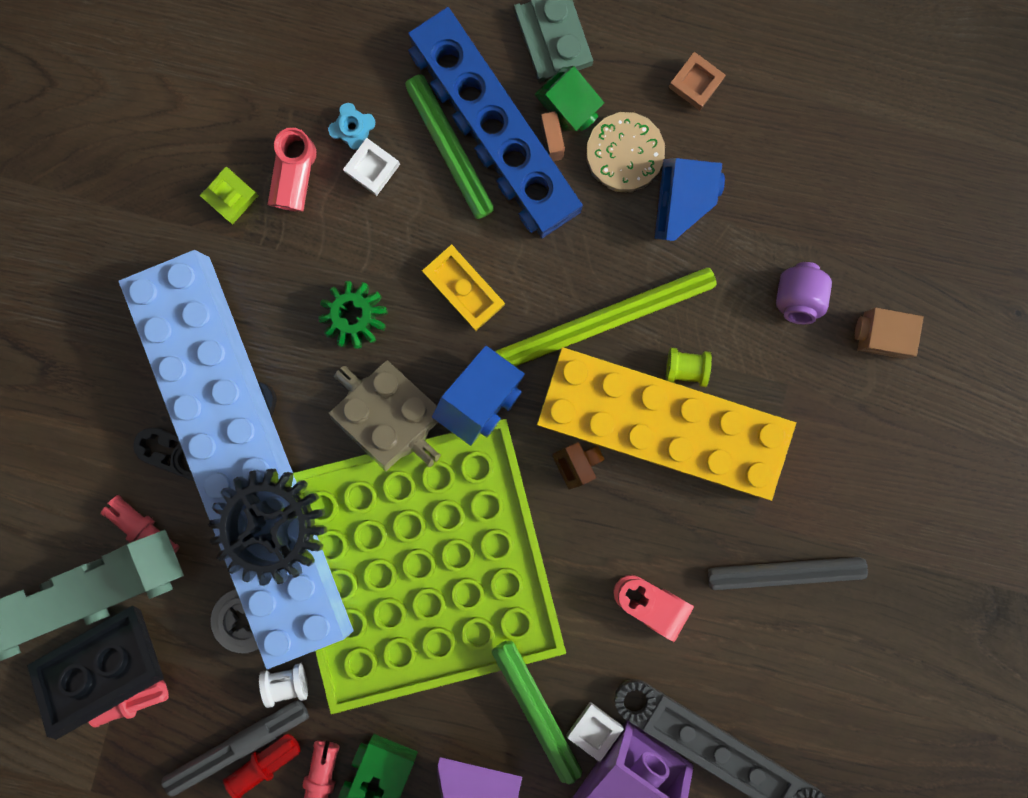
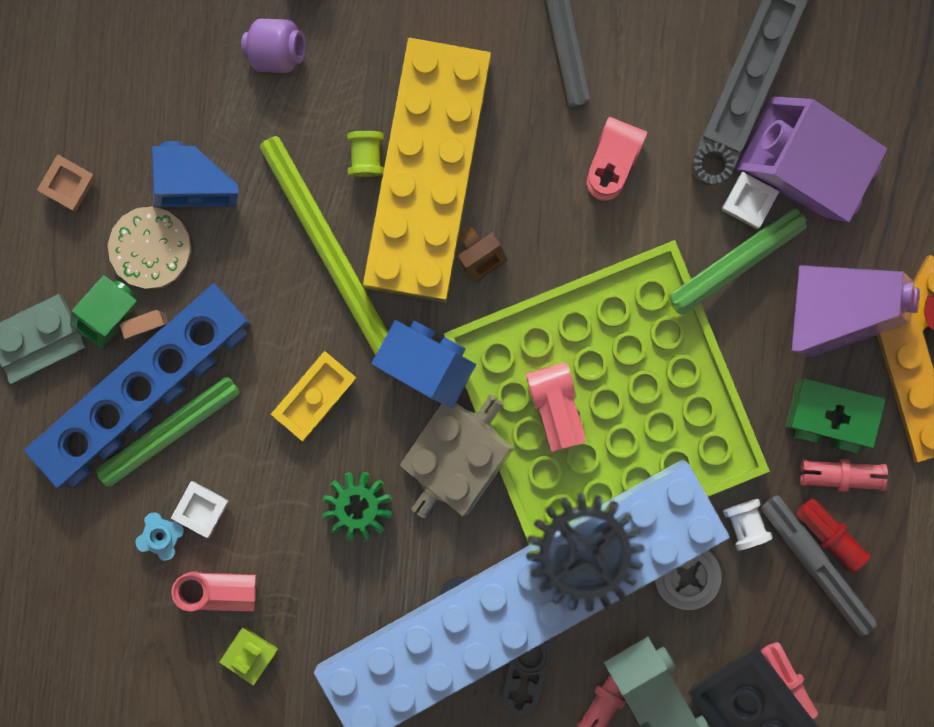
camera: 100 degrees left, 0 degrees up
(429, 516) = (554, 397): none -> coral piece

